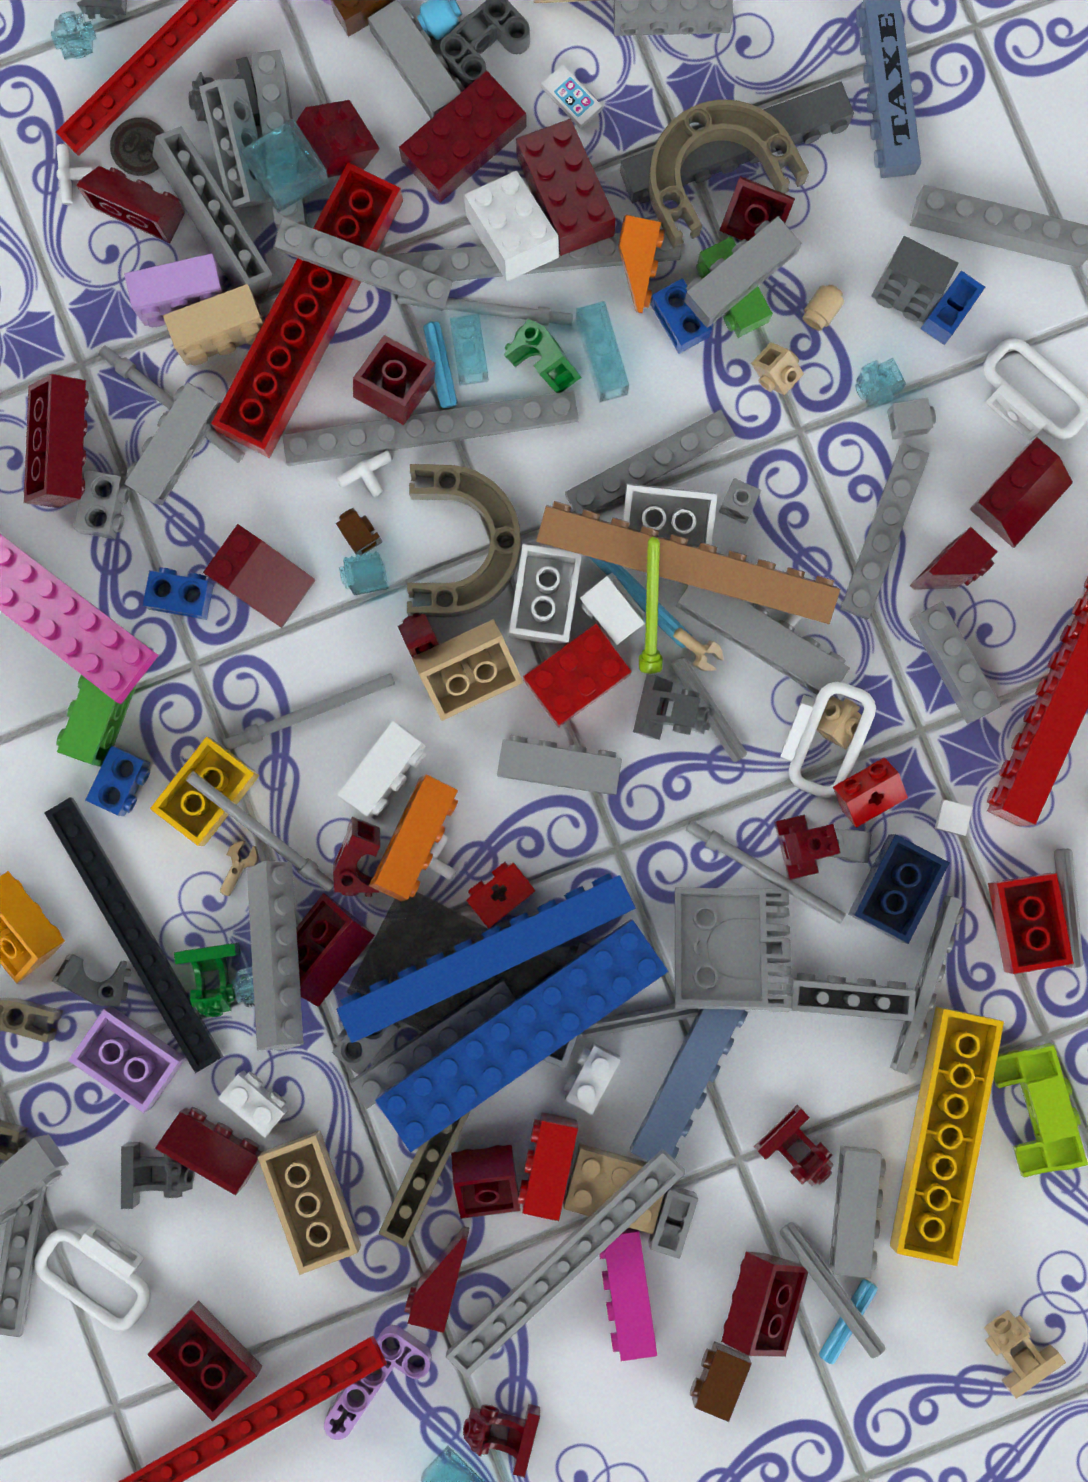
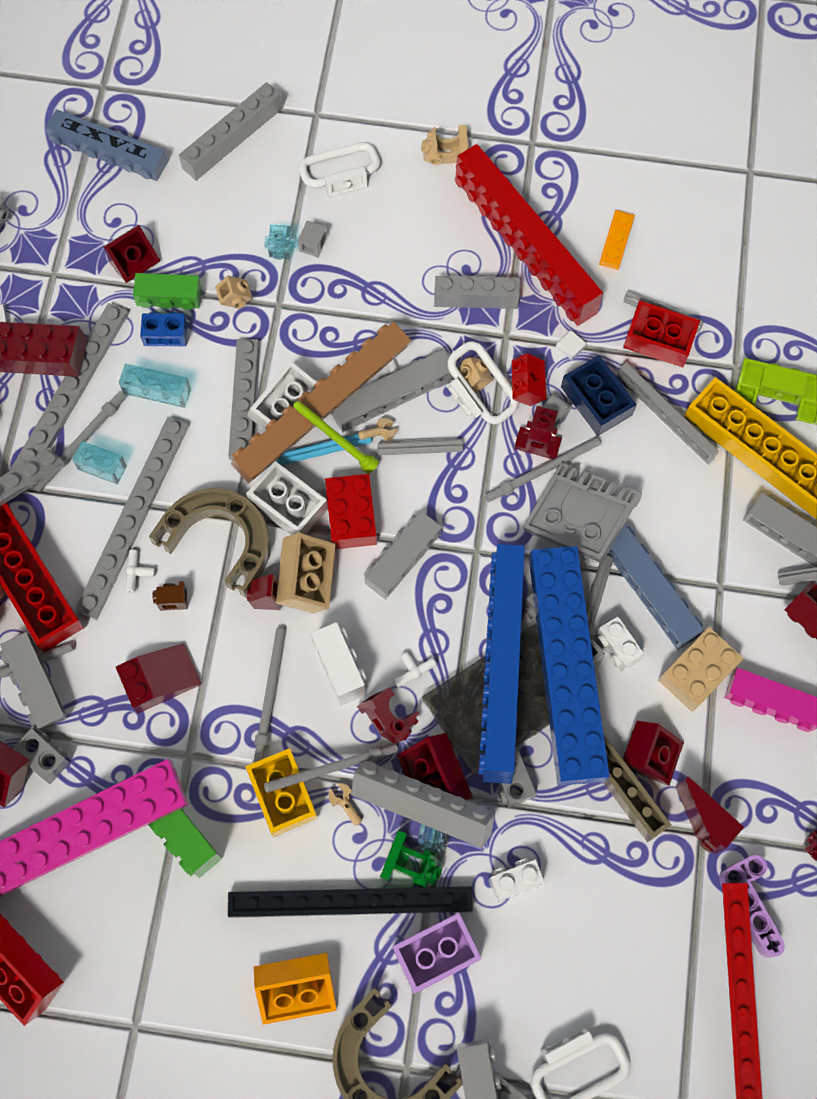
camera: 60 degrees left, 15 degrees down
(73, 978) = (357, 958): dark grey tile -> none
(111, 777) = (233, 854): blue brick -> none
(137, 1176) = (537, 964): dark grey tile -> none
(176, 600) = (140, 741): blue brick -> none
(205, 1360) = (681, 1018): dark red brick -> none
(210, 1150) = (532, 927): dark red slope -> none
(309, 1202) = (606, 878): tan brick -> none
(364, 573) = (201, 603): clear light blue brick -> none
(393, 379) = (87, 516): dark red brick -> none
(414, 837) = (396, 669): orange brick -> none
(430, 1042) = (540, 735): light grey plate -> none
(438, 354) = (96, 487): medium azure axle -> none
(511, 225) = (40, 392): white brick -> none
(517, 891) = (466, 624): red brick -> none
(548, 1166) = (664, 701): red brick -> none
(554, 366) = (141, 412): green tile -> none
(565, 1262) = (736, 727): light grey plate -> none
(613, 609) = (321, 465): white brick -> none
(637, 251) = (107, 329): orange slope -> none
(673, 1221) = (743, 642): light grey brick -> none
(687, 714) = (416, 452): dark grey tile -> none
(721, 121) = (65, 235): dark tan piece -> none
(740, 501) = (301, 355): light grey brick -> none
(742, 271) = (162, 276): light grey brick -> none
(802, 117) = (80, 244): dark grey brick -> none
(814, 1166) = (748, 539): dark red tile -> none
(823, 307) = (213, 249): tan brick -> none
(852, 999) = (654, 456): light grey brick -> none
(884, 531) = (370, 288): light grey plate -> none
(914, 280) = (231, 187): dark grey brick -> none
(953, 307) = (261, 180): blue brick -> none
(958, 563) = (417, 253): dark red slope -> none
(1023, 492) = (395, 203): dark red slope -> none

